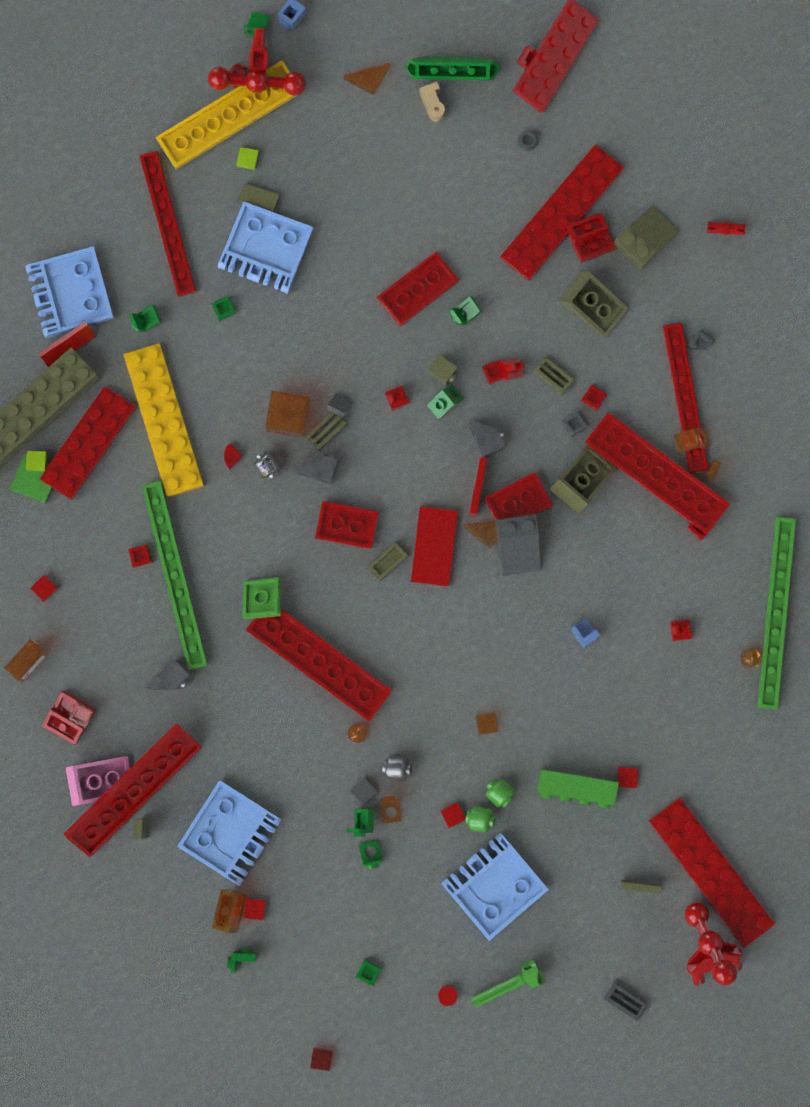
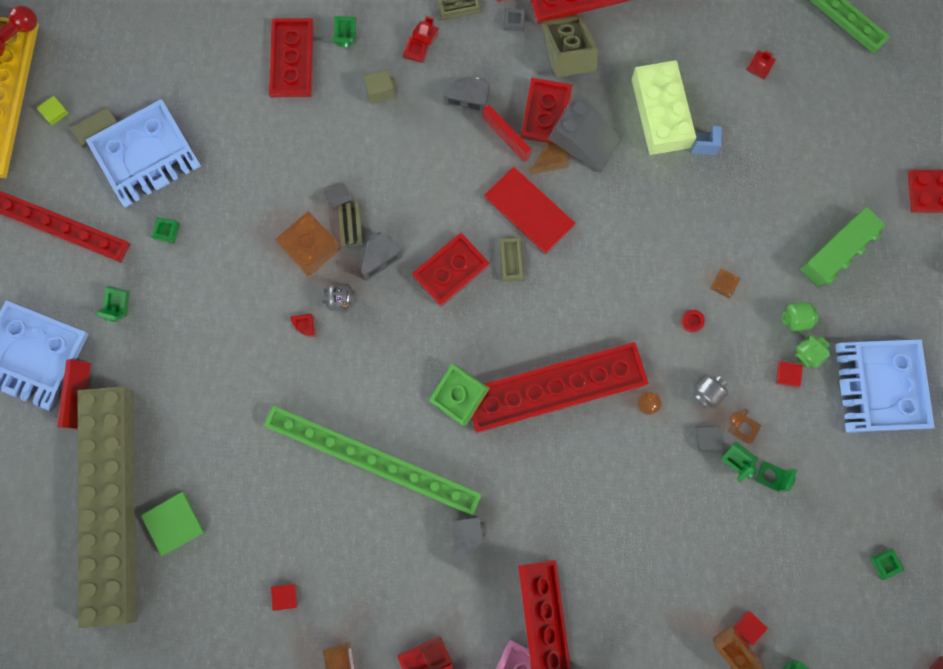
camera: 55 degrees left, 5 degrees down
(36, 460) = (156, 509): lime tile -> none
(88, 443) = (182, 447): red plate -> none
(140, 556) = (327, 479): red tile -> none
(163, 420) = (220, 360): yellow plate -> none
(226, 830) = (655, 598): light blue hinge -> none
(397, 398) = (371, 143): red tile -> none
(440, 720) = (693, 321): none -> red tile
(444, 401) = (408, 107): green bracket -> none
(585, 583) = (663, 107): none -> yellowish green brick
(627, 777) = (861, 199): red tile -> none
(750, 658) = (829, 25): clear orange tile -> none

